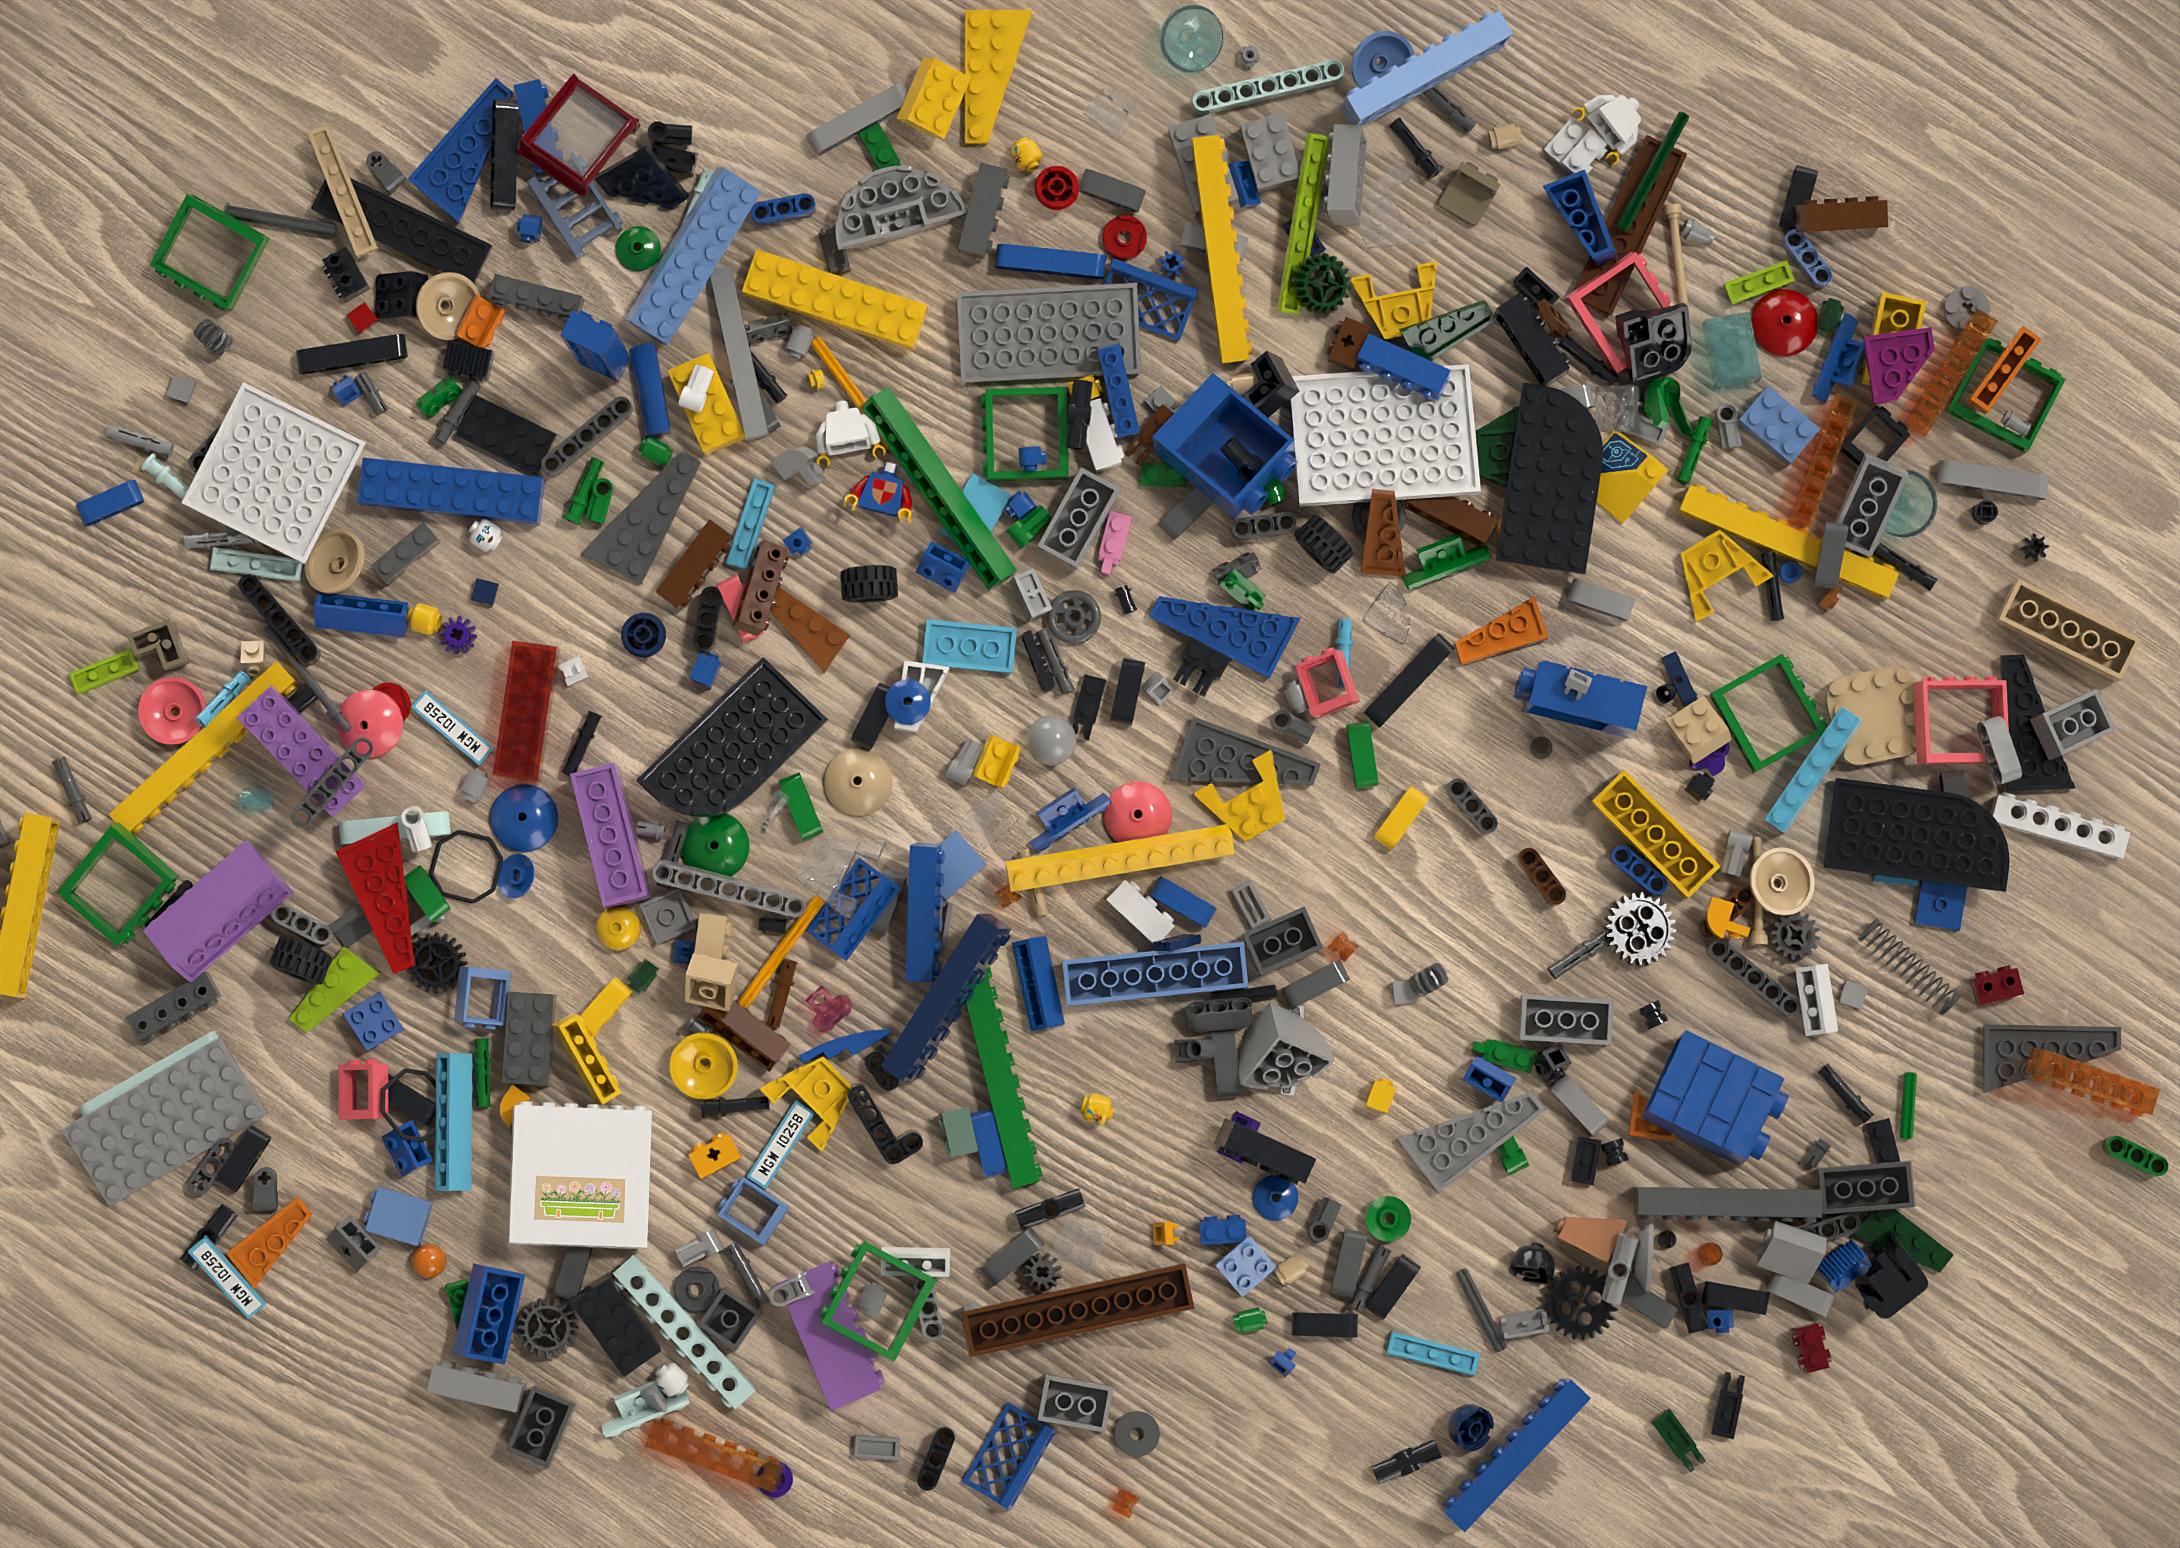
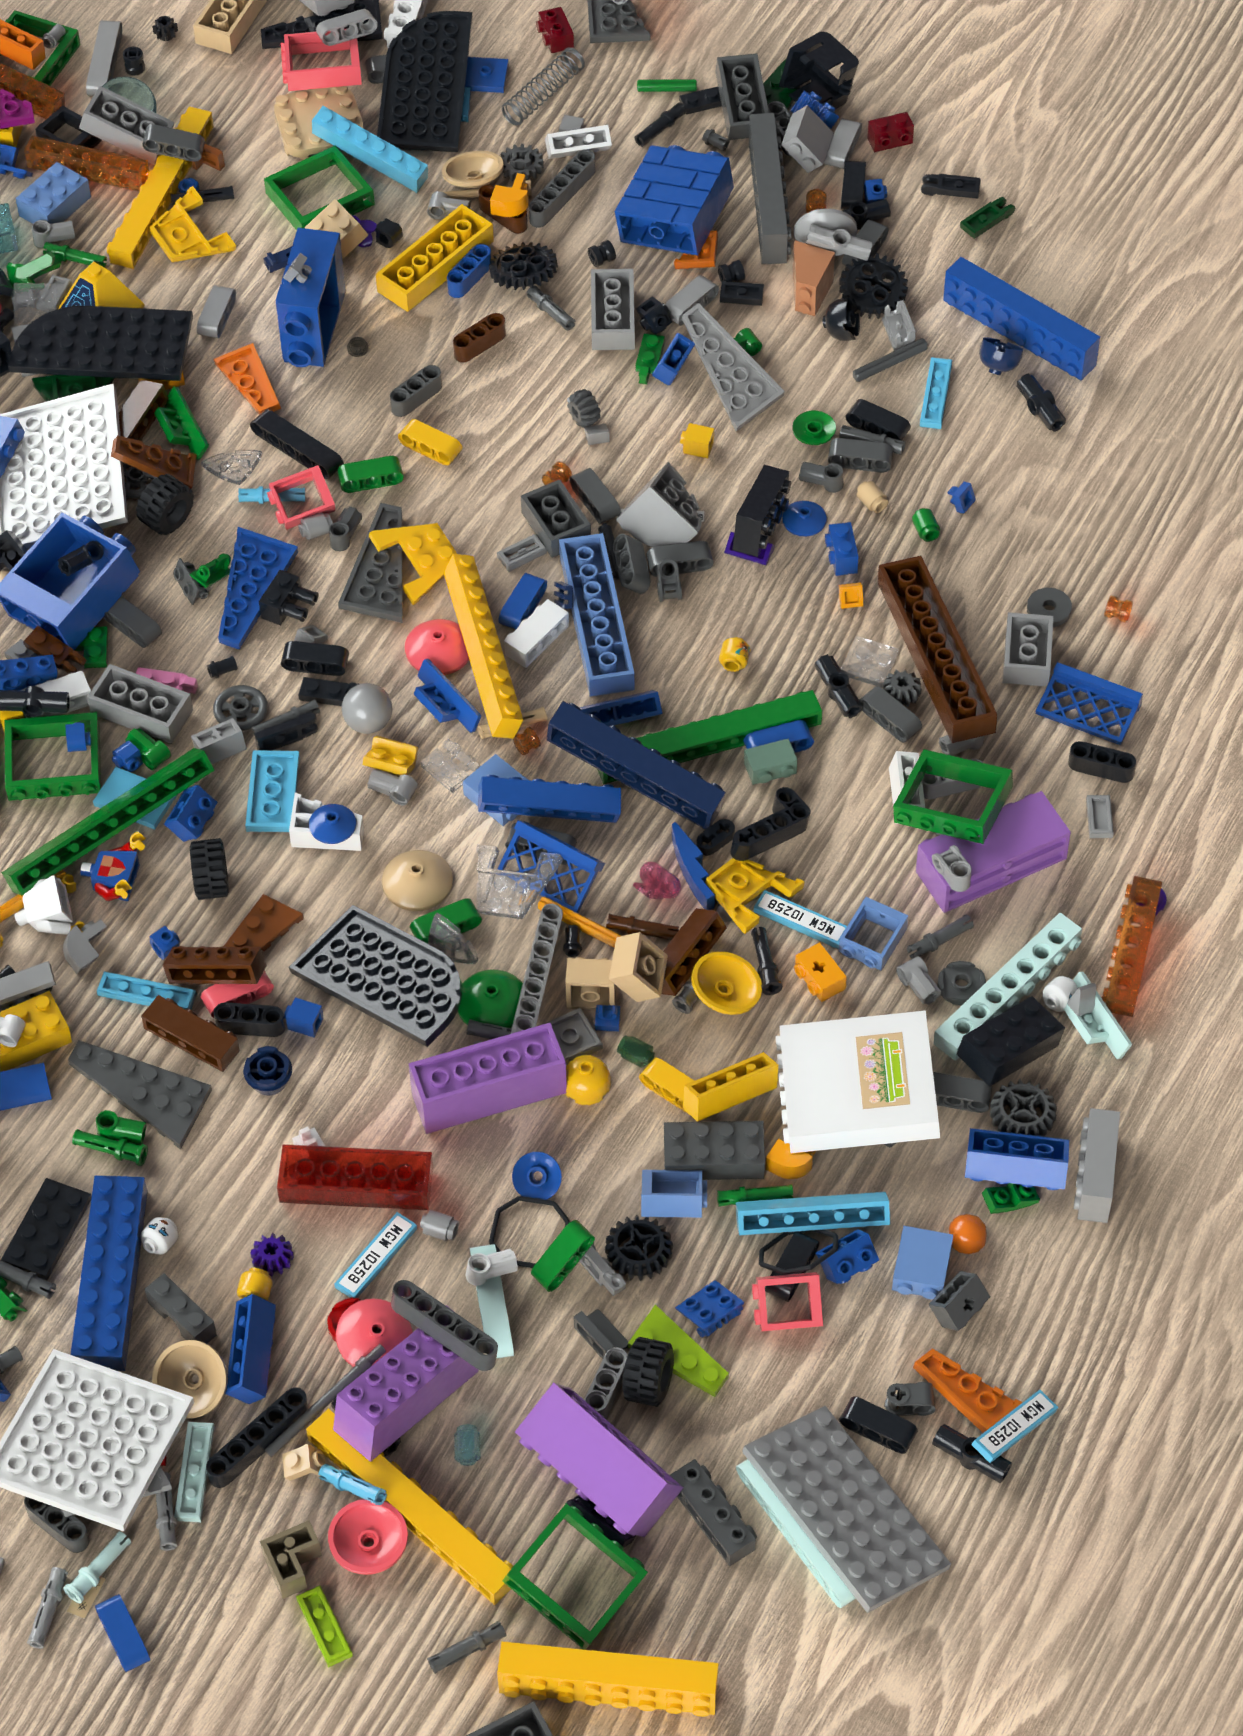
camera: 95 degrees left, 30 degrees down
(206, 1183) = (911, 1462): dark grey beam -> none
(378, 881) = (560, 1298): red wing -> none
(485, 592) = (223, 1236): dark blue tile -> none
(540, 820) = (472, 1192): blue dish -> none
(541, 1426) = (1139, 1101): dark grey brick -> none
(580, 746) = (361, 1119): black pin -> none
(582, 447) = (47, 1136): dark grey beam -> none
(655, 451) = (67, 1080): green brick -> none
(730, 1318) = (988, 941): dark grey brick -> none
(872, 719) = (348, 865): black beam -> none
(1245, 1266) = (875, 526): medium blue hinge -> none
(1252, 525) = (147, 561): dark grey beam -> none
(1324, 1324) = (921, 469): black beam -> none
(1907, 568) = (191, 100): black pin -> none

